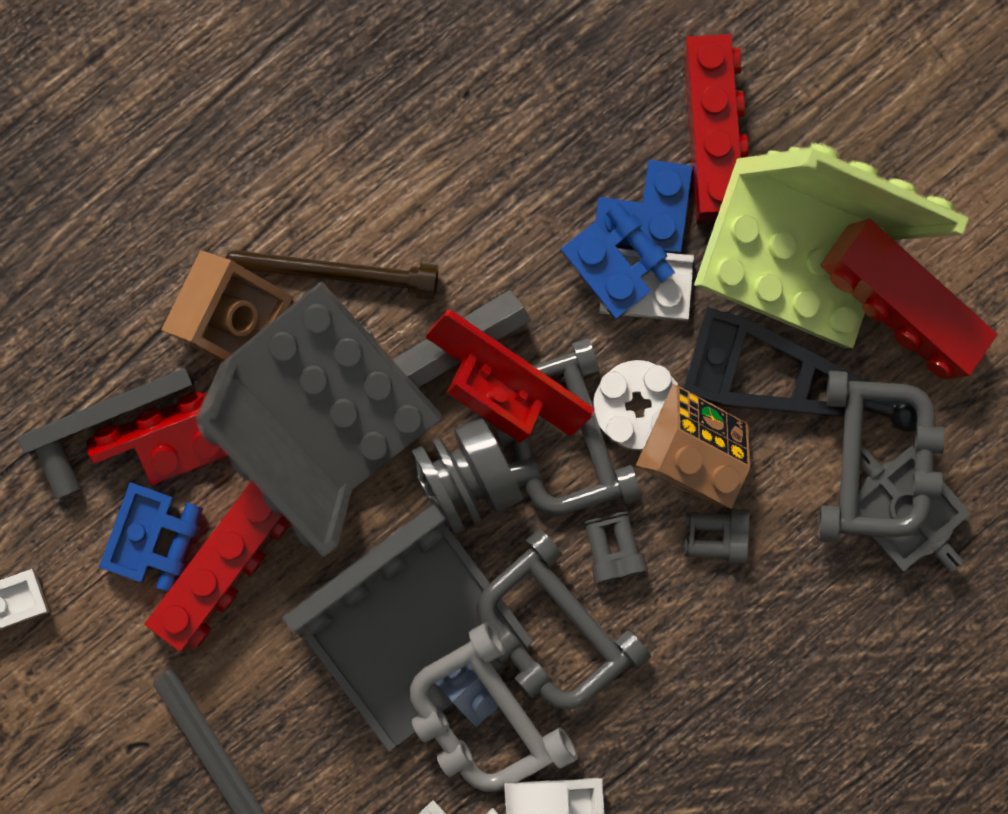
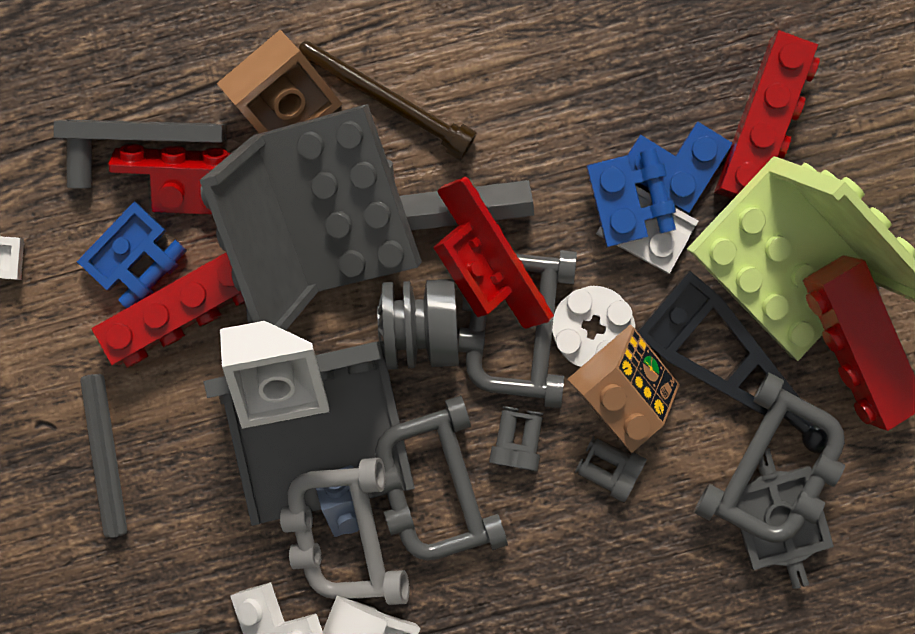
camera: 30 degrees right, 5 degrees up
(348, 578) = (271, 374): none -> white slope

